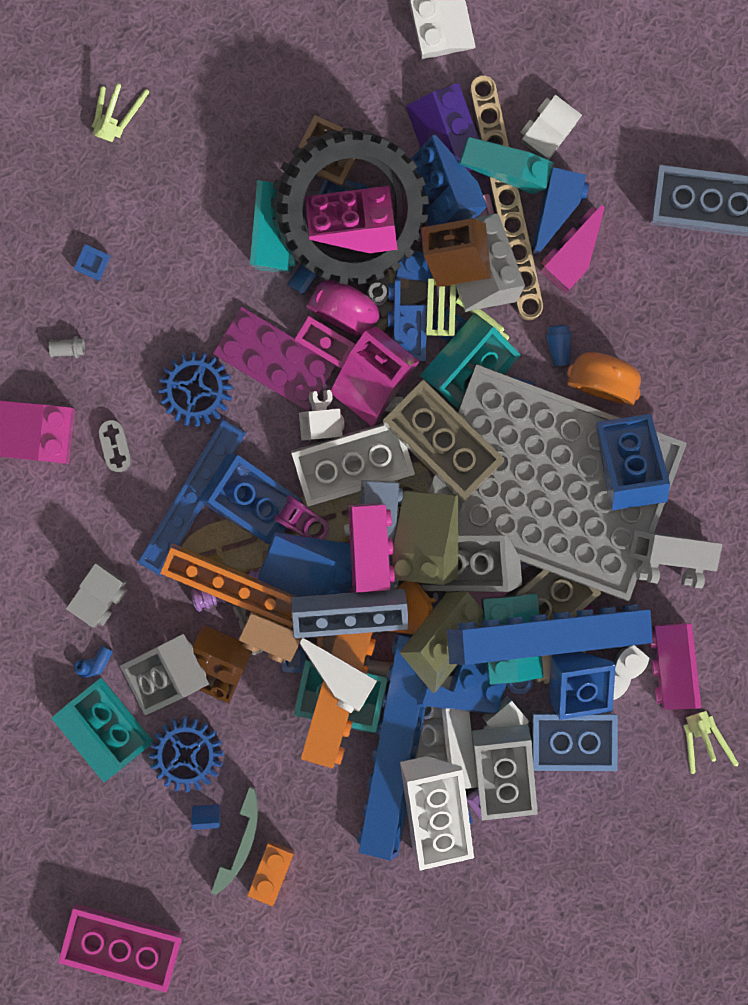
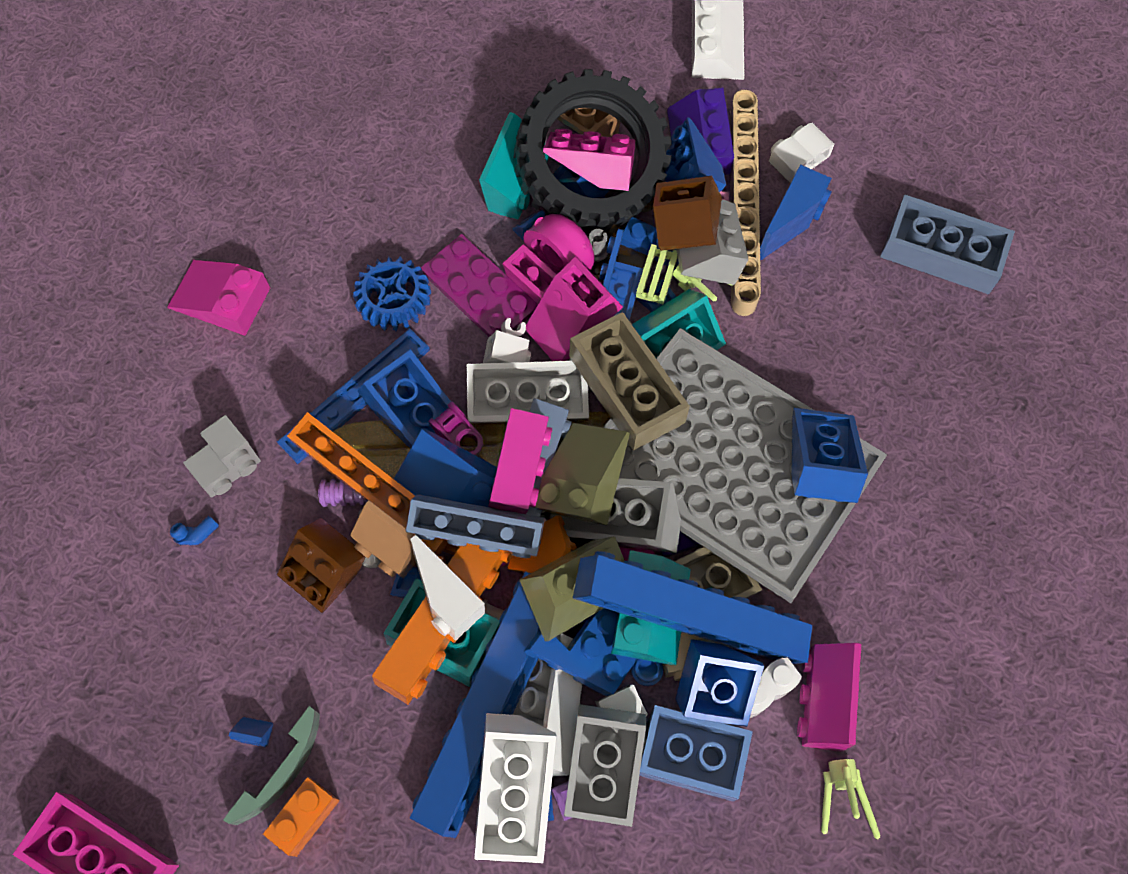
camera: 15 degrees right, 20 degrees down
(67, 347) = (279, 229): light grey pin -> none
(92, 262) = (333, 164): blue plate -> none
(102, 730) = (174, 602): teal slope -> none
(105, 126) = (387, 59): yellowish green plant -> none
(108, 448) = (288, 328): light grey beam -> none
(164, 674) = (260, 553): light grey brick -> none
(167, 769) = (228, 661): blue gear -> none
(507, 165) = (756, 159): teal slope -> none
(559, 344) = (768, 338): blue cone -> none
(573, 259) = (797, 258): dark pink slope -> none
(605, 378) = (811, 374): orange piece -> none
(674, 551) = (852, 559): light grey brick -> none

